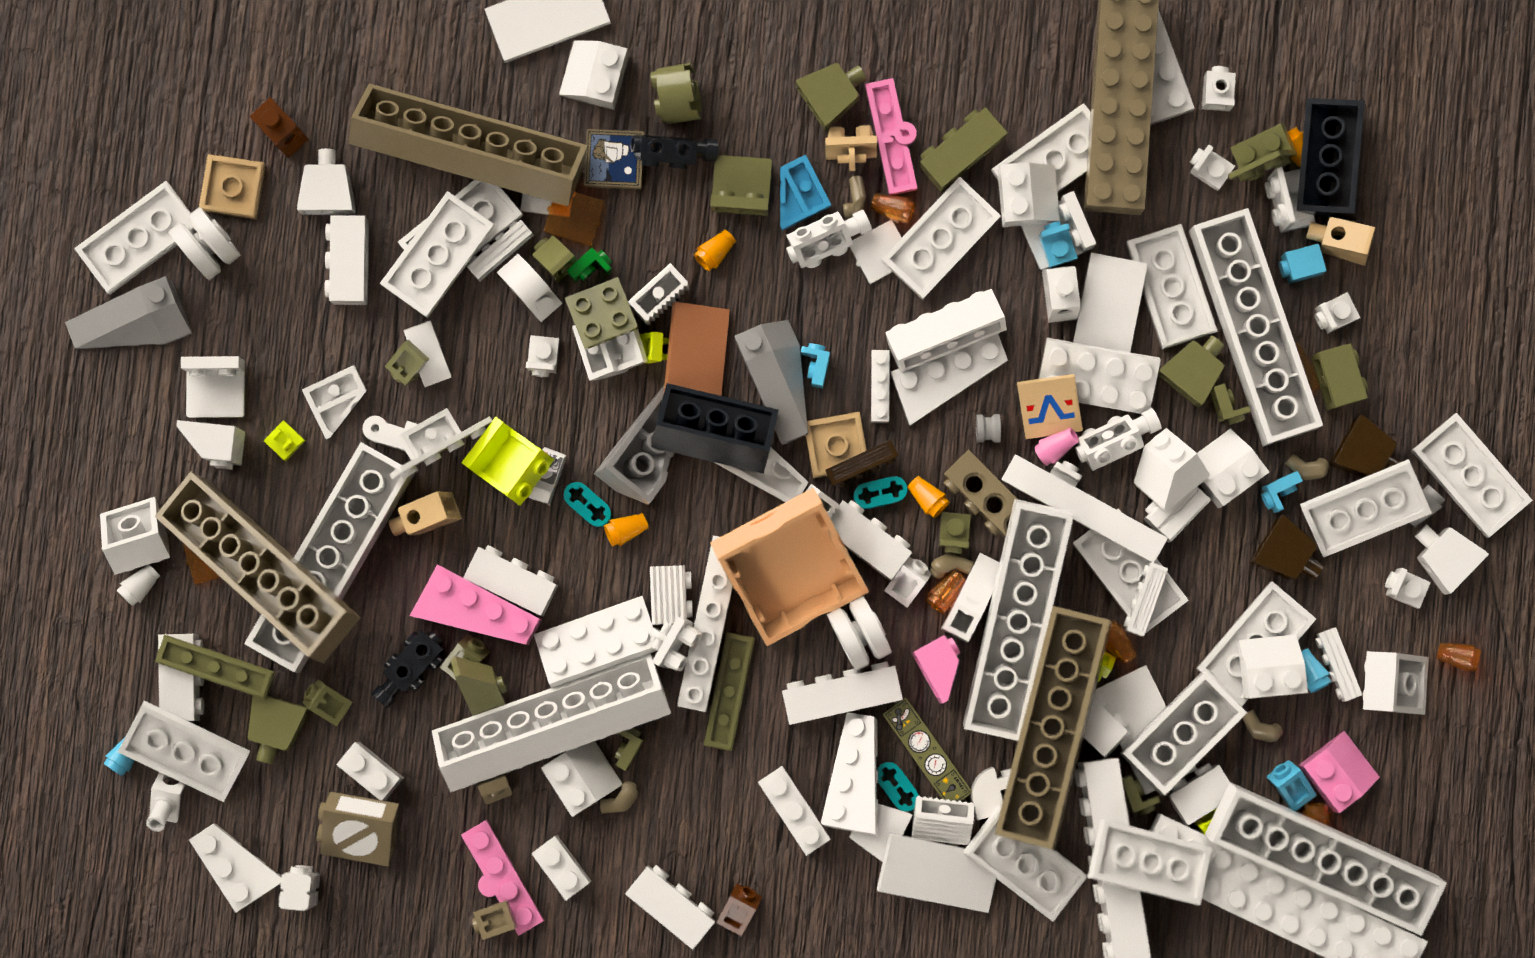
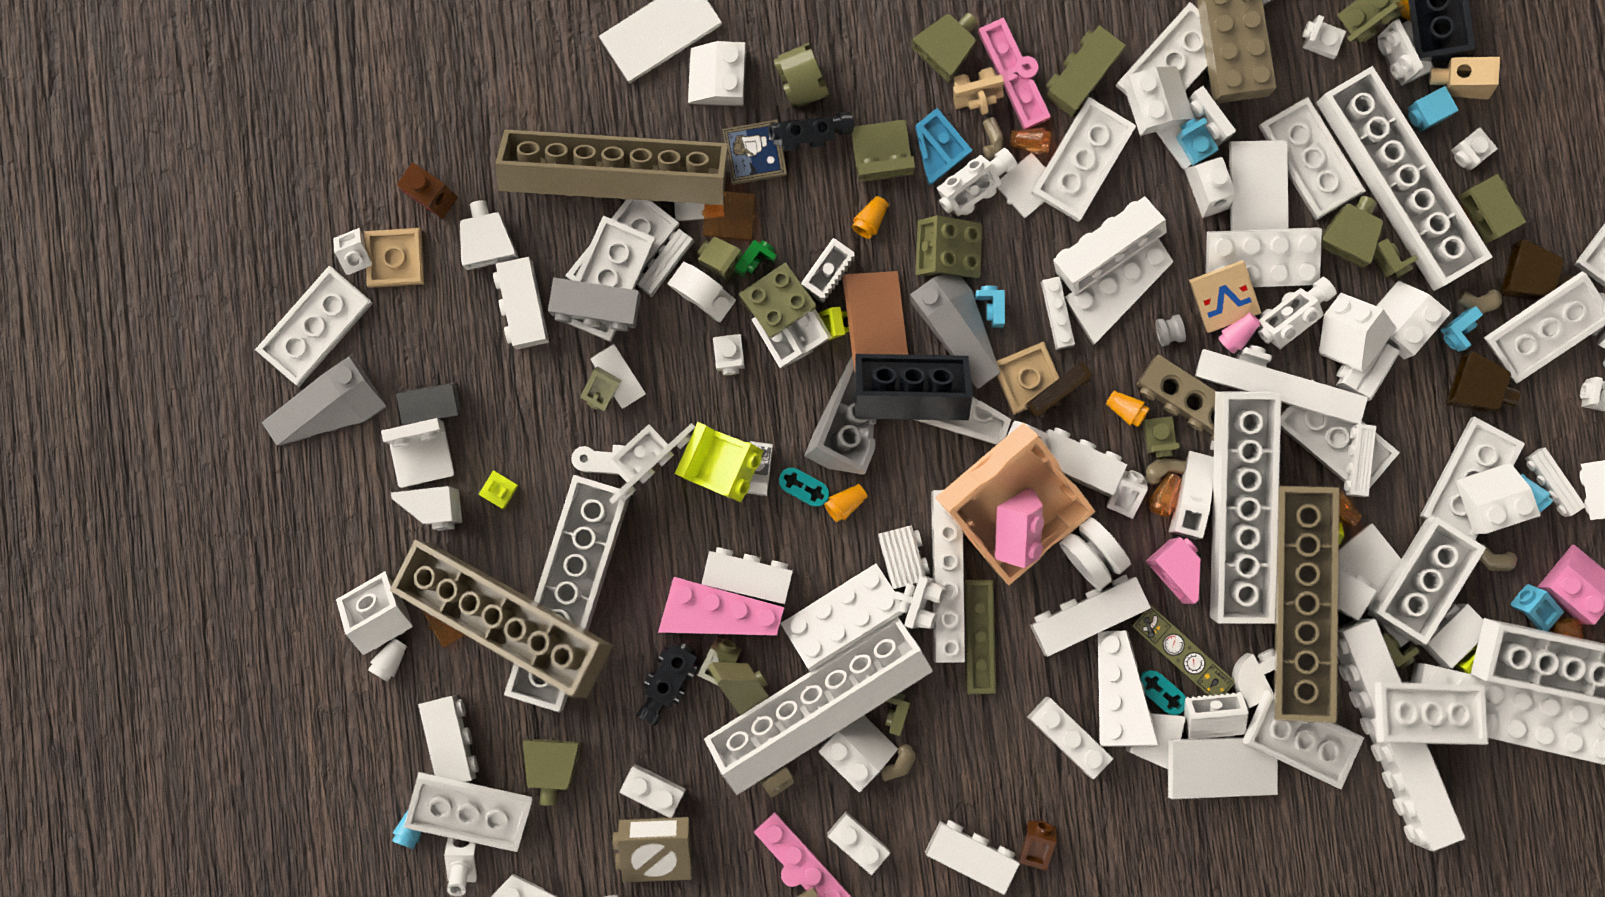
camera: 15 degrees left, 0 degrees up
(190, 171) = (351, 251): none -> white bracket
(204, 243) = (380, 316): white wheel -> none
(215, 666) = (480, 723): olive tile -> none
(234, 339) = (428, 403): none -> dark grey hinge
(326, 702) = (595, 733): olive bracket -> none
(334, 398) = (538, 438): white wing -> none
(418, 277) = (594, 304): none -> light grey brick
(434, 510) = (658, 524): tan torso -> none
(786, 297) = (948, 247): none -> olive bracket
(786, 592) = (1019, 529): none -> bright pink slope
(879, 485) = (1078, 407): teal beam -> none

